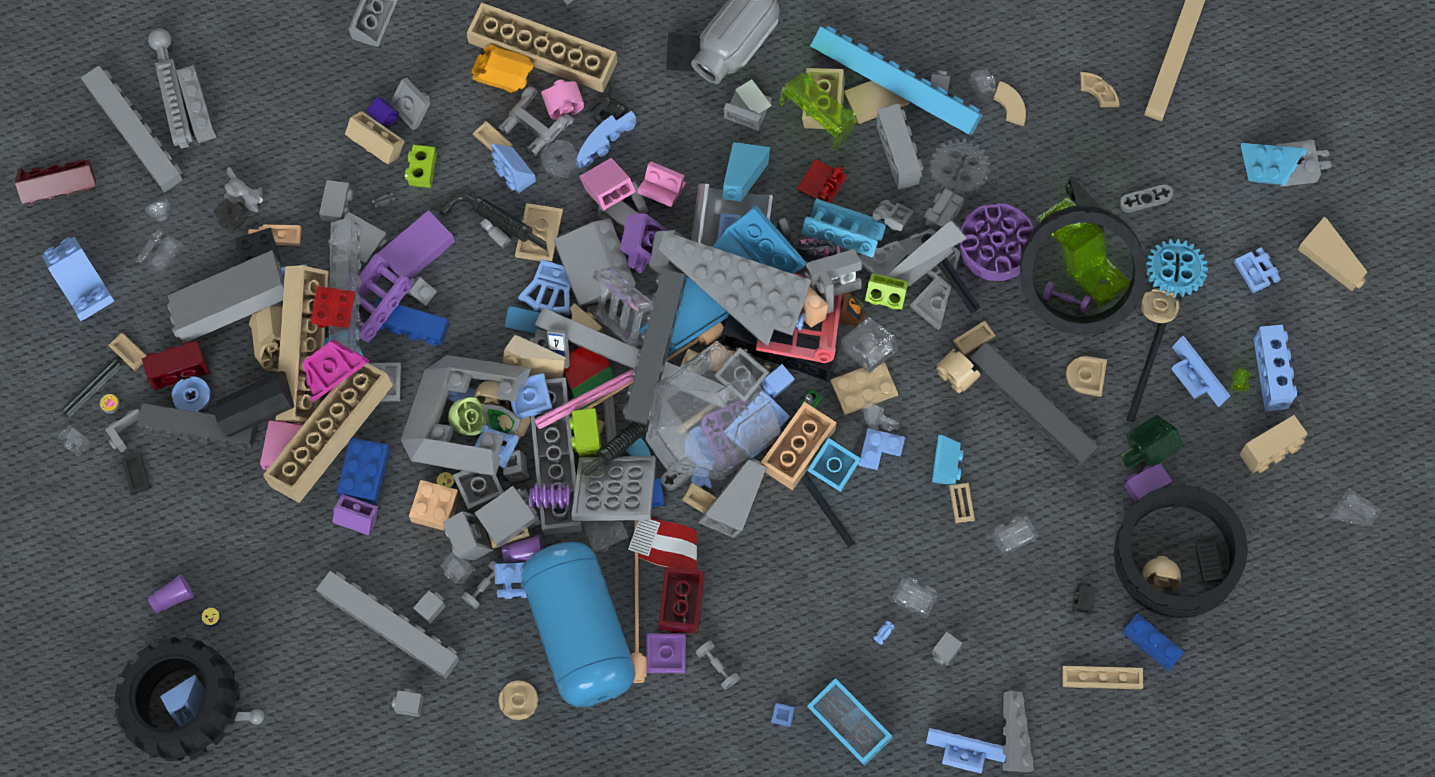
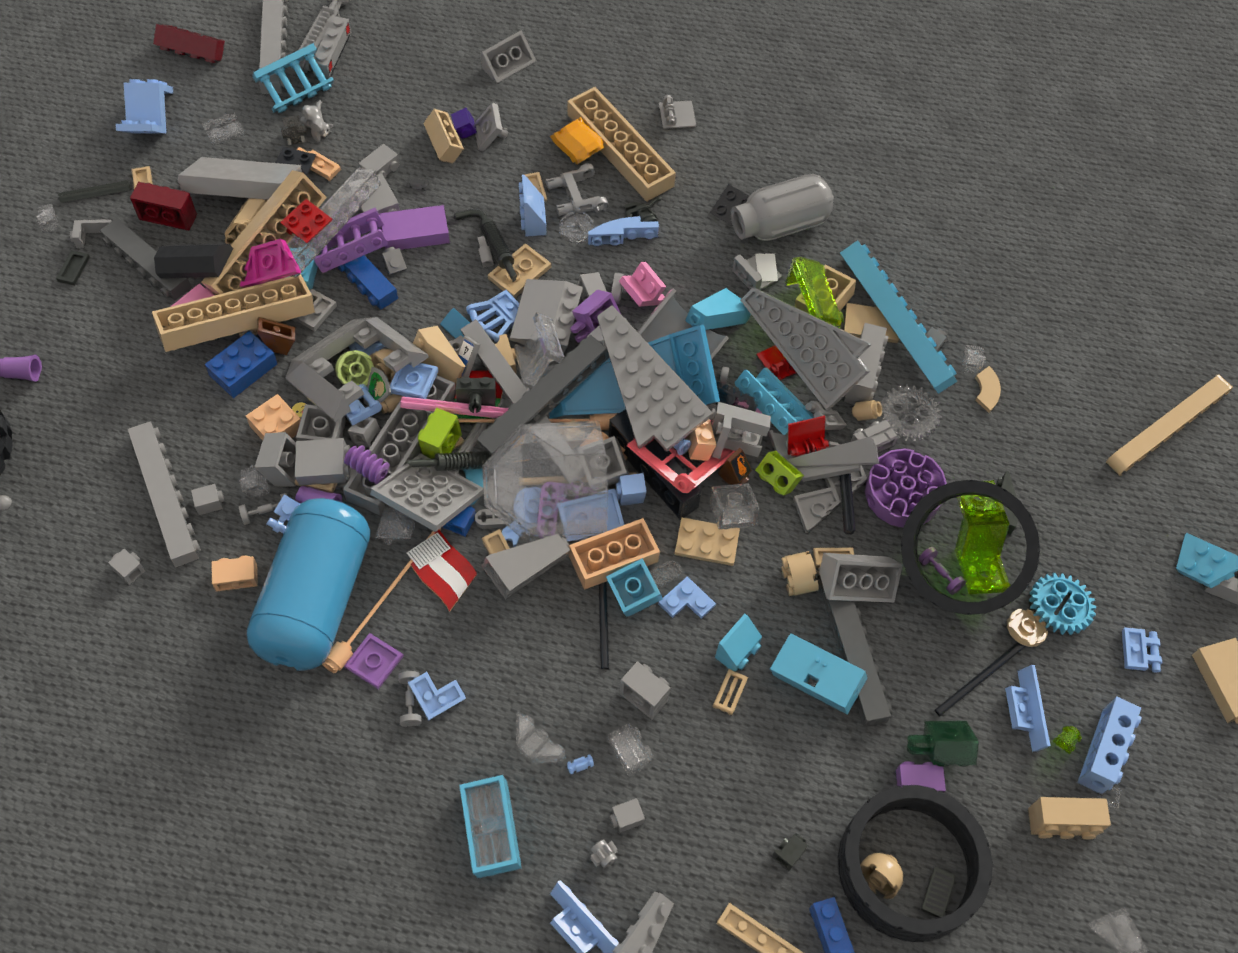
camera: 25 degrees right, 10 degrees down
(109, 403) = (97, 209): tile -> none
(158, 209) = (246, 99): clear brick -> none
(172, 161) = (293, 61): none -> medium azure fence
(191, 385) = (157, 228): light blue plate -> none
(210, 616) = (35, 404): light yellow tile -> none
(355, 514) = (207, 391): medium lavender brick -> none
(378, 427) = (275, 335): none -> reddish brown slope
(421, 166) = (464, 175): lime brick -> none
(501, 653) = (234, 573): none -> light nougat brick
(522, 704) = (224, 626): tan tile -> none
(562, 99) = (609, 183): bright pink brick -> none
(591, 375) = (476, 392): none -> pearl dark grey brick
(607, 184) = (599, 262): bright pink brick -> none
(681, 600) = (418, 622): dark red brick -> none
(737, 654) = (433, 700): none -> light blue plate
(782, 714) = (436, 781): medium blue tile -> none
(808, 398) = (654, 528): green piece -> none
(839, 638) = (535, 743): none -> clear slope
(849, 160) = (816, 350): none -> light grey wing
(873, 417) = (698, 568): clear brick -> none
(892, 247) = (806, 436): none -> red hinge
(898, 543) = (645, 689): none -> light grey brick
(923, 188) = (867, 410): none -> tan brick
(948, 688) = (603, 853): none -> light grey gear
(1008, 345) = (860, 577): none -> light grey slope
(1014, 535) = (760, 750): clear brick -> none
(1023, 446) = (819, 673): none -> medium azure brick
(1087, 375) = (920, 648): tan tile -> none
(1099, 88) = (1077, 420): tan tile -> none
(1150, 191) = (1081, 538): light grey beam -> none

